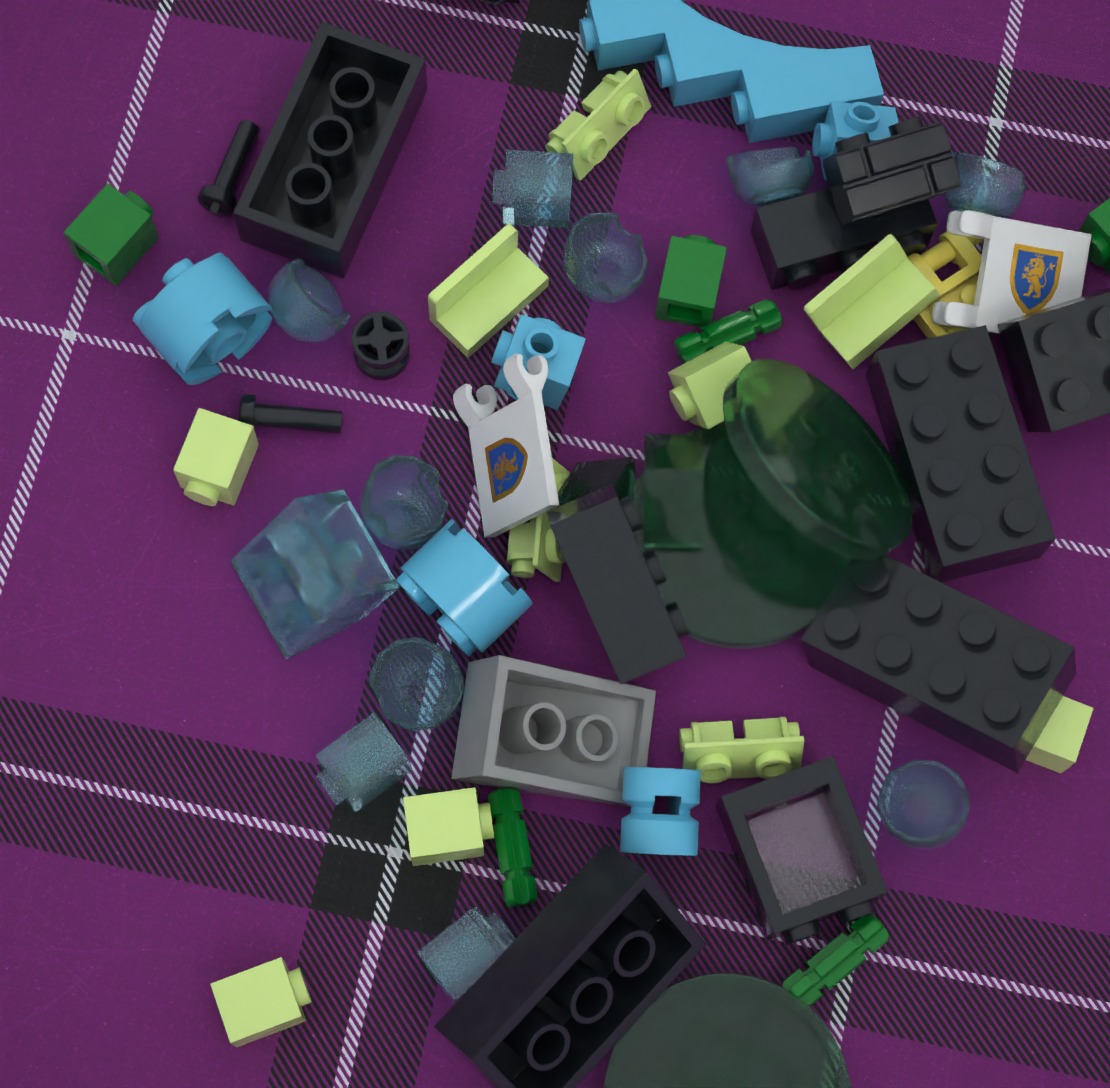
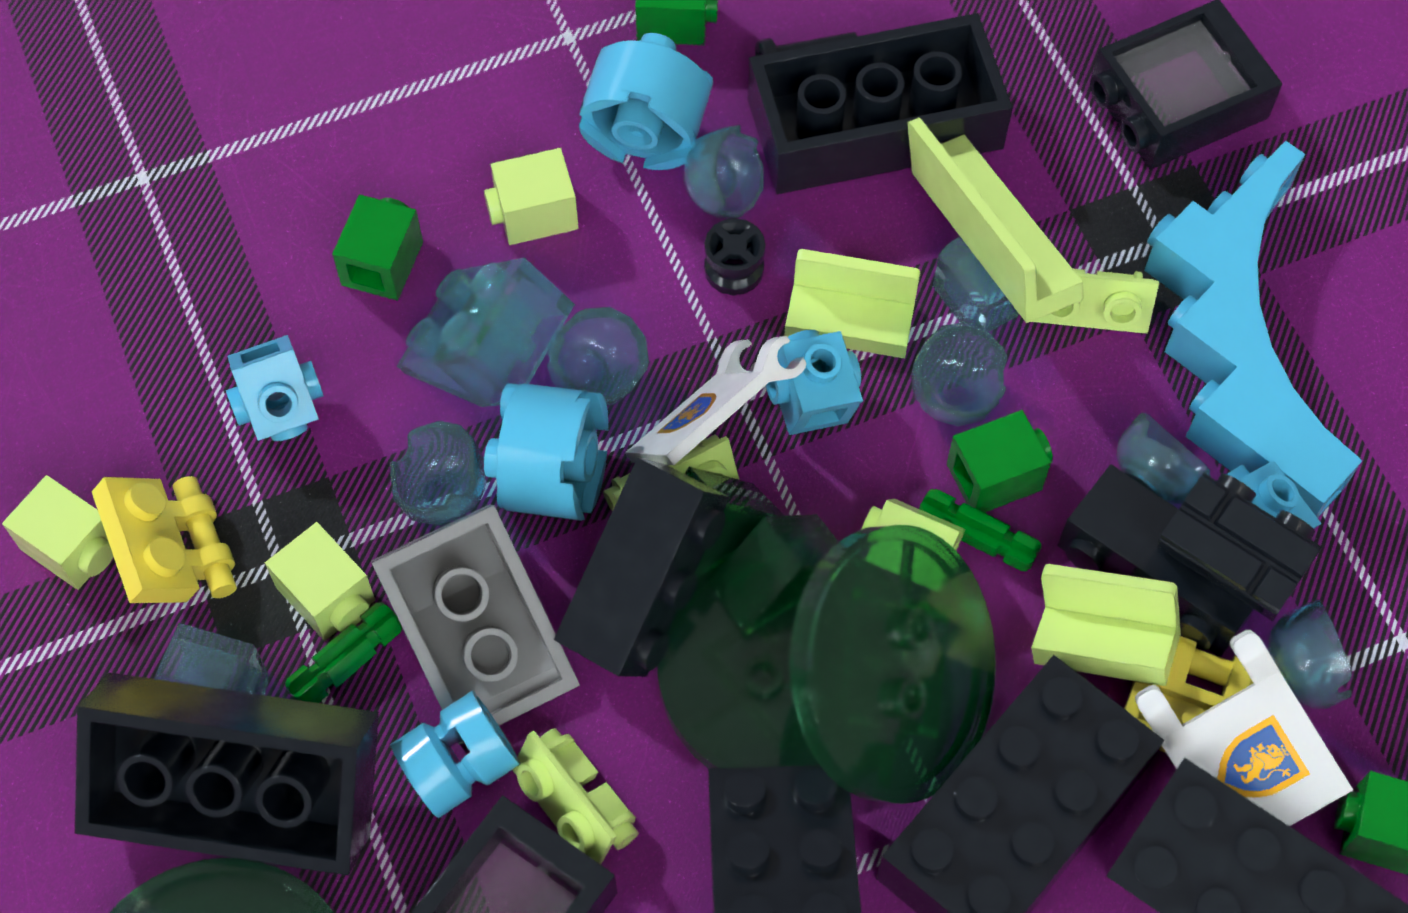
camera: 60 degrees right, 10 degrees down
(172, 603) = (378, 246): none -> green brick
(252, 762) = (269, 370): none -> medium azure brick
(288, 416) = (596, 201): black piece -> none
(321, 936) = (148, 543): none -> light yellow plate
(362, 764) = (335, 479): clear light blue brick -> none
(511, 145) = (993, 224): none -> yellowish green panel

